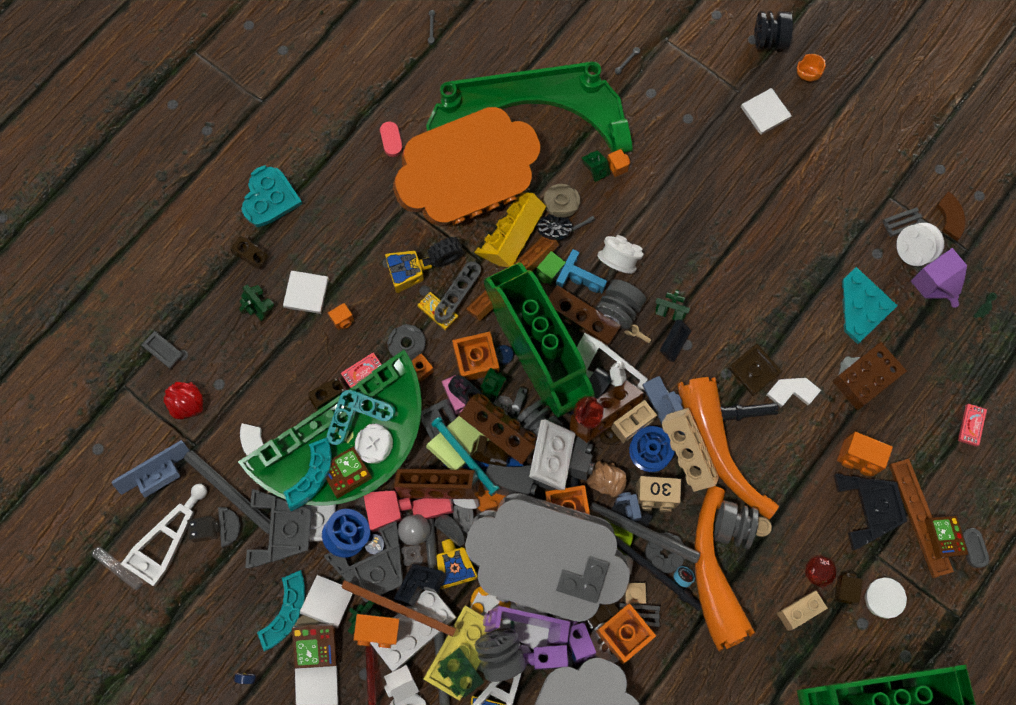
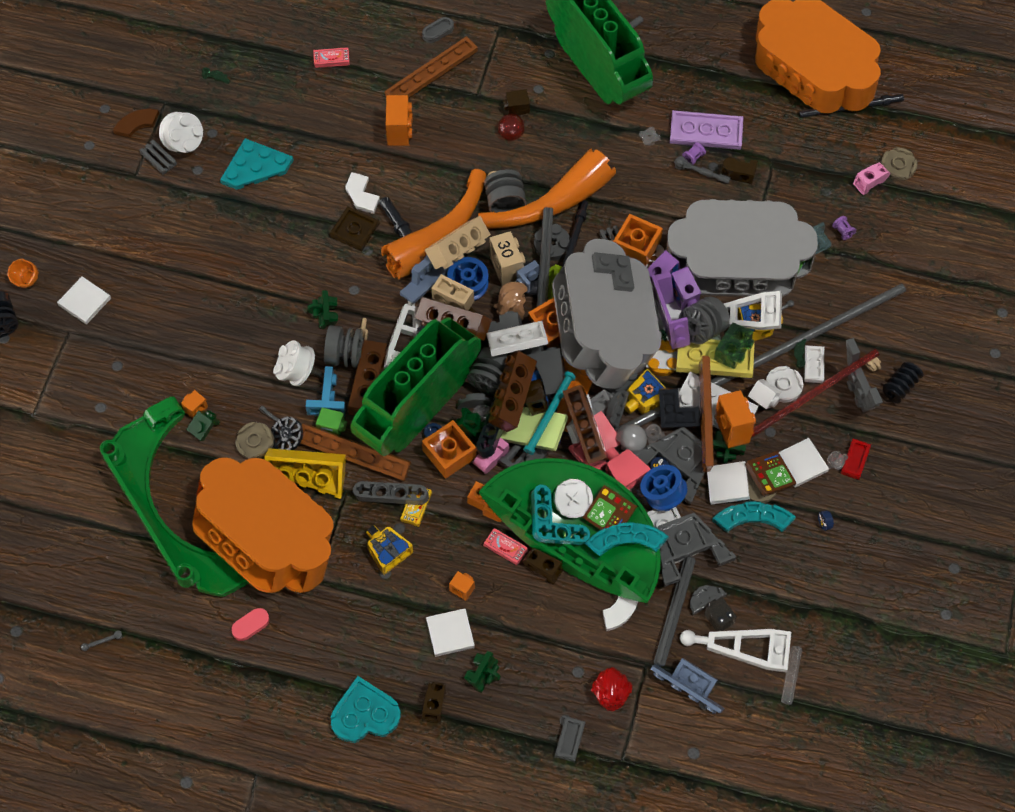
camera: 110 degrees left, 10 degrees down
(406, 332) = (464, 530): dark grey tile -> none
(445, 251) = (356, 516): black tyre -> none
(588, 412) = (469, 317): clear red hair -> none
(618, 373) = (414, 320): white plate -> none
(636, 51) = (57, 436): dark grey hinge -> none
(675, 340) = (356, 296): black plate -> none
(684, 576) = (566, 220): tile -> none
(802, 610) = (551, 128): tan brick -> none
(867, 376) = (323, 139): reddish brown piece -> none
(880, 506) = (435, 101): black wing -> none
(885, 598) = (510, 77): white tile -> none
(942, 278) = (207, 107): medium lavender piece -> none
(946, 537) = (440, 47): reddish brown tile -> none

